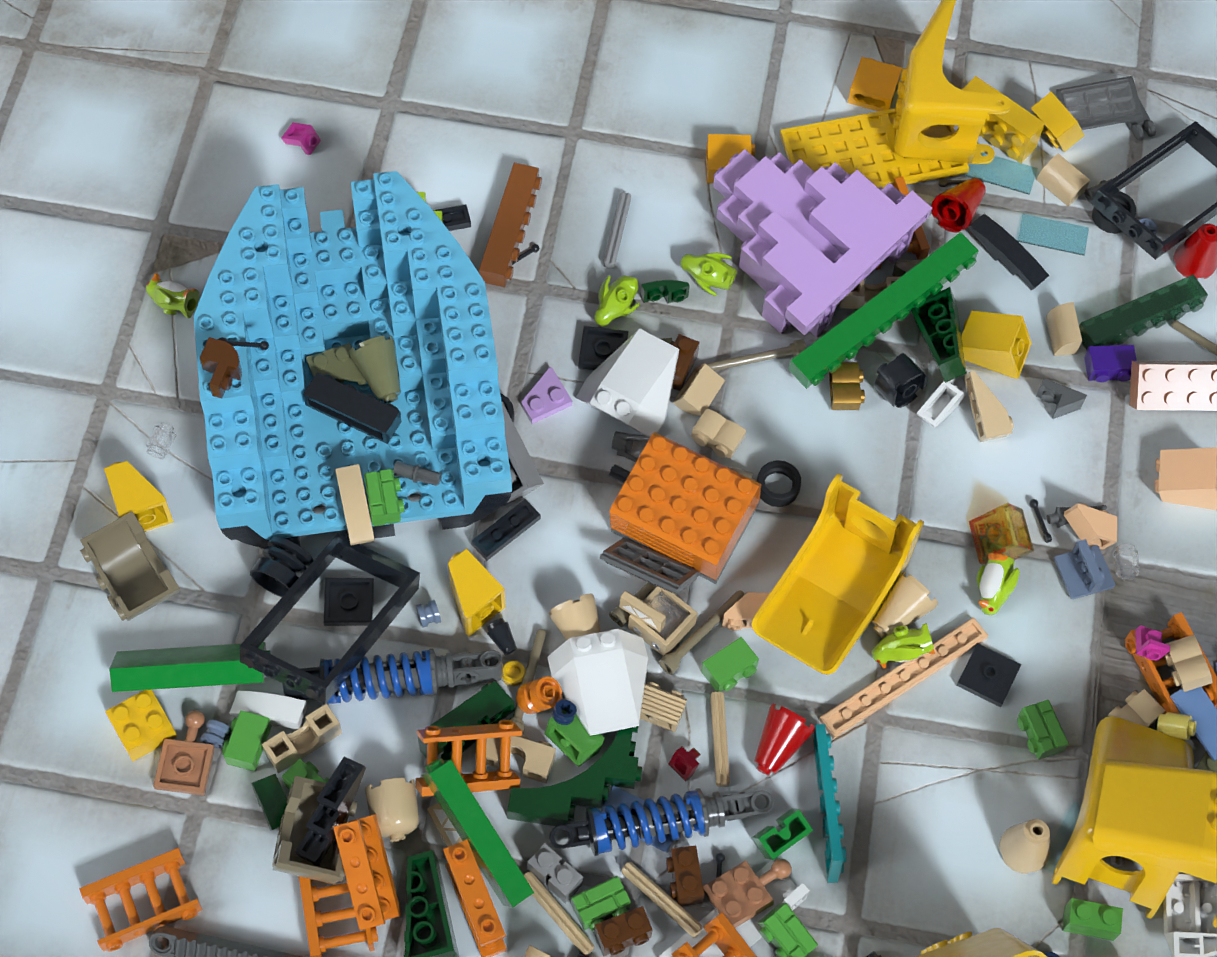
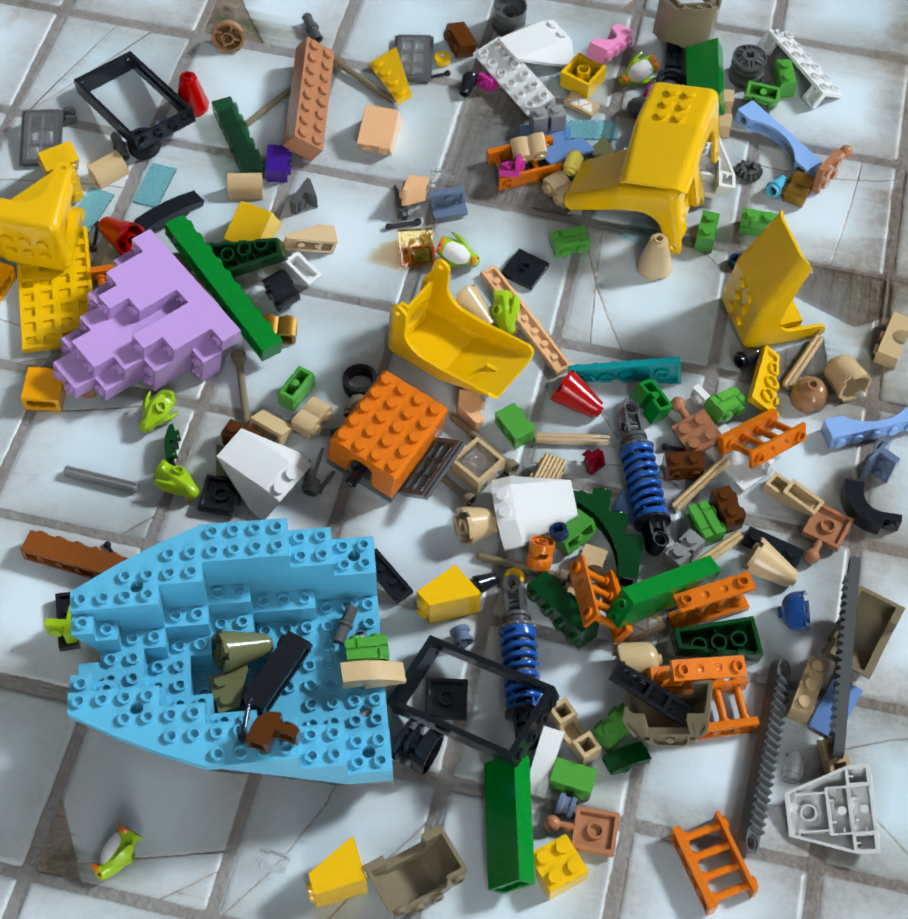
camera: 85 degrees left, 5 degrees down
(642, 611) = (479, 468): tan tile -> none
(754, 410) = (296, 388): none -> bright green brick

